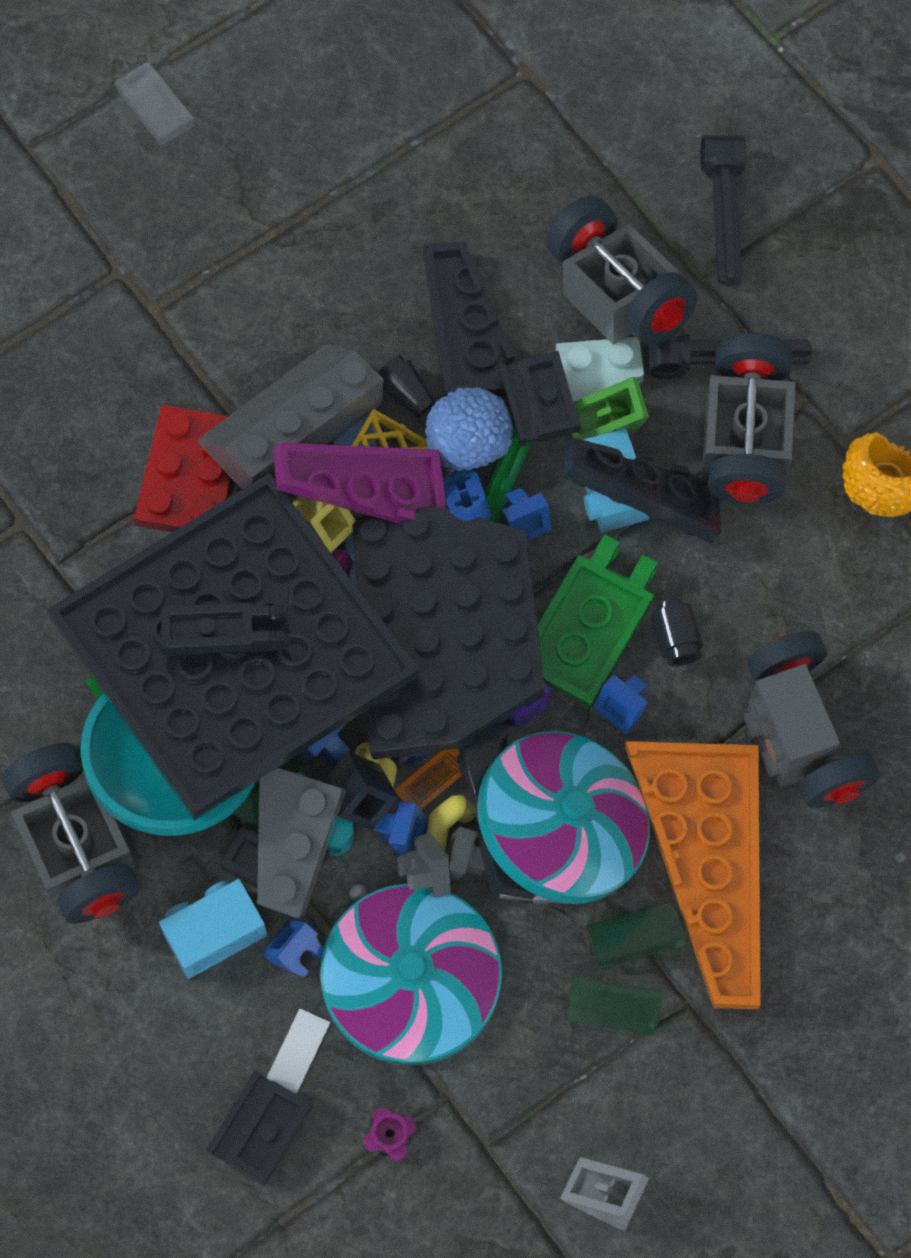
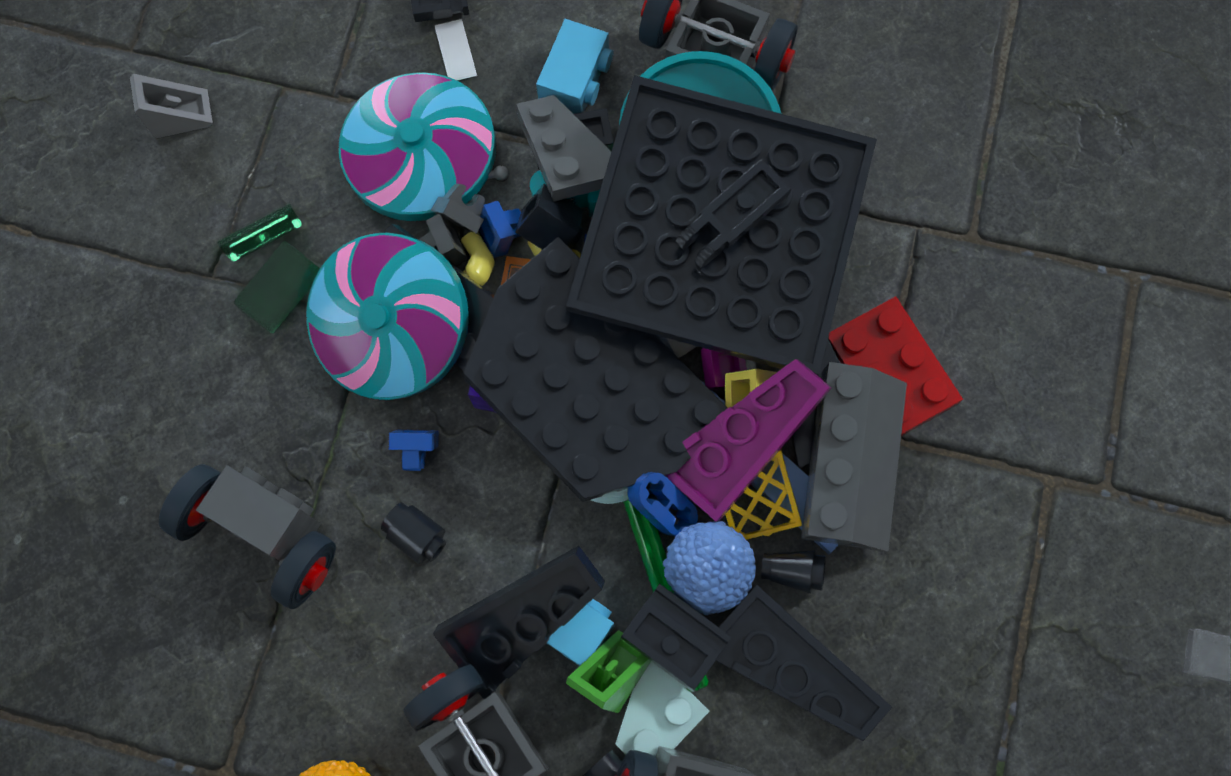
camera: 145 degrees right, 5 degrees up
(289, 945) = (508, 92): blue tile -> none
(385, 1121) = (349, 32): magenta plate -> none
(527, 513) = (608, 533): blue tile -> none
(592, 622) = (489, 492): green tile -> none
(708, 834) = (276, 397): orange wing -> none

